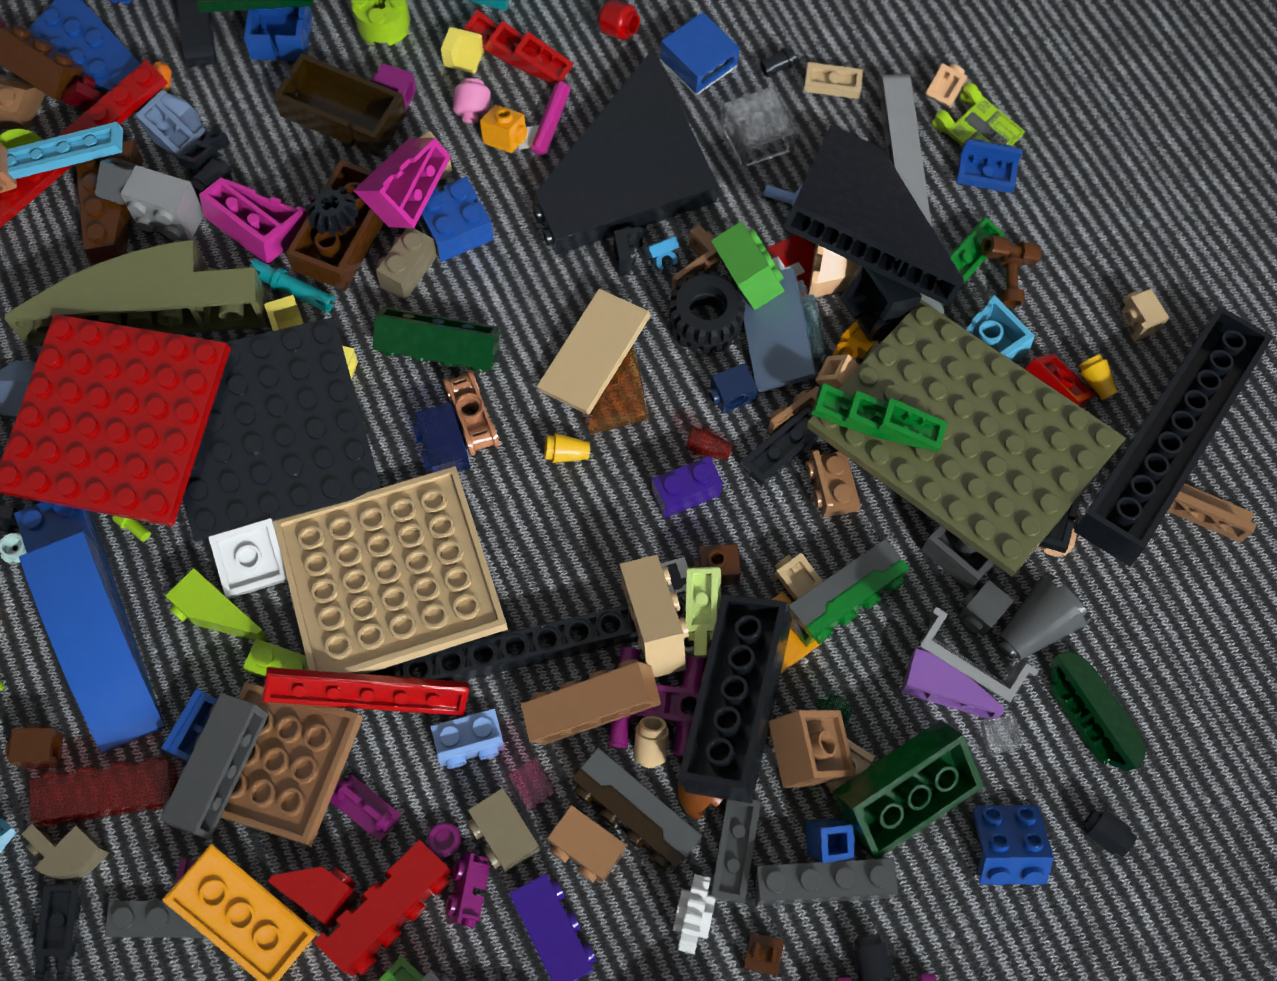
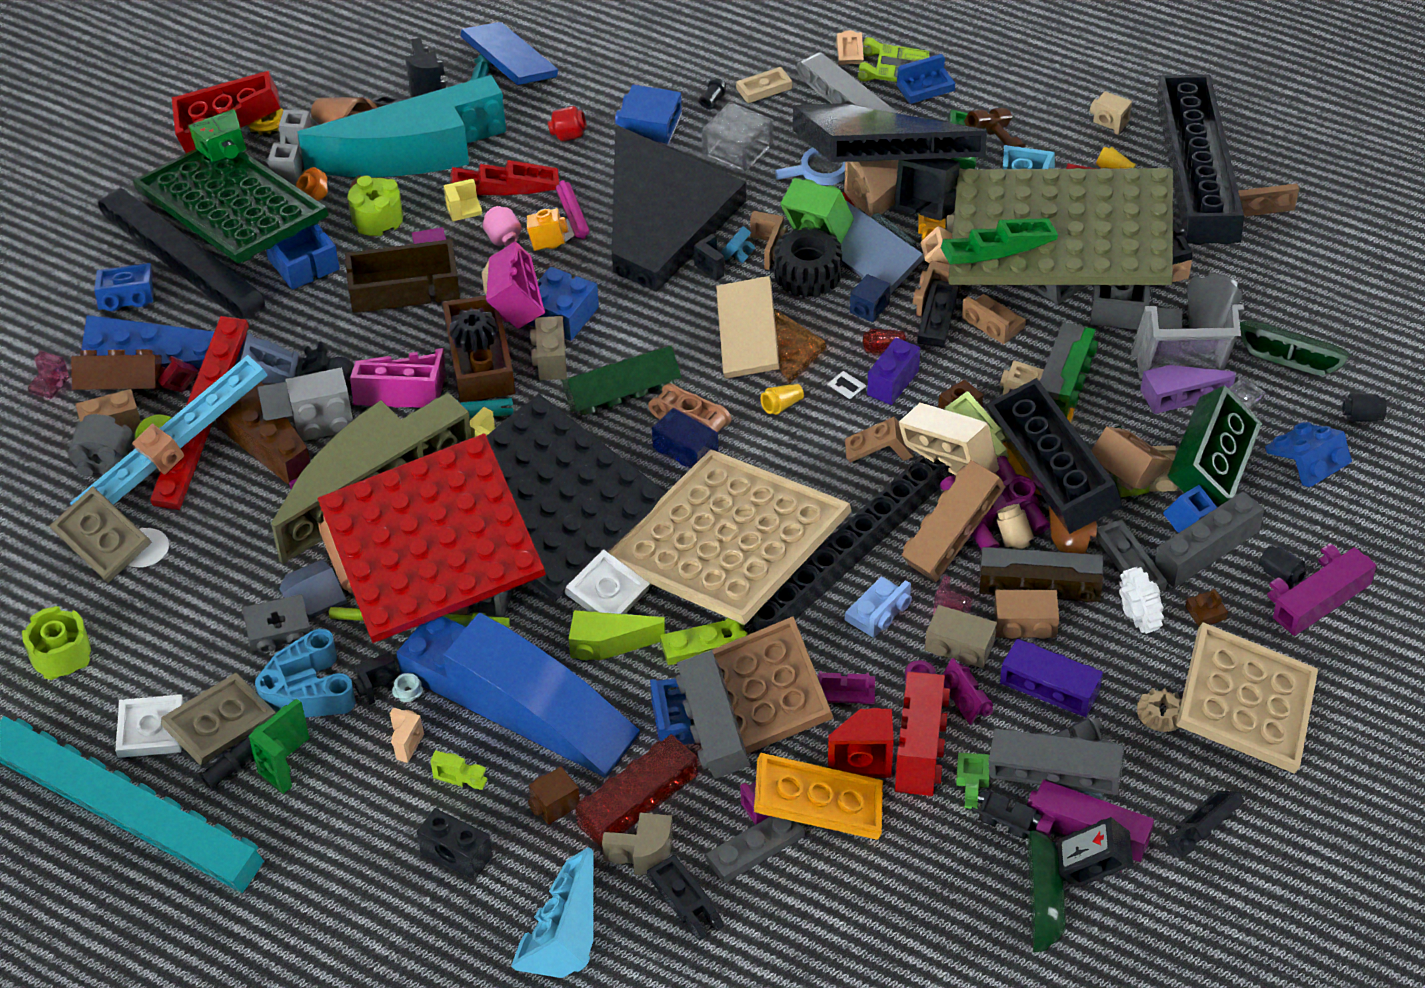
camera: 30 degrees left, 20 degrees down
(364, 691) = (782, 604): red tile -> none
(605, 553) = (875, 438): none -> medium nougat bracket
(640, 468) = (846, 385): none -> white sticker

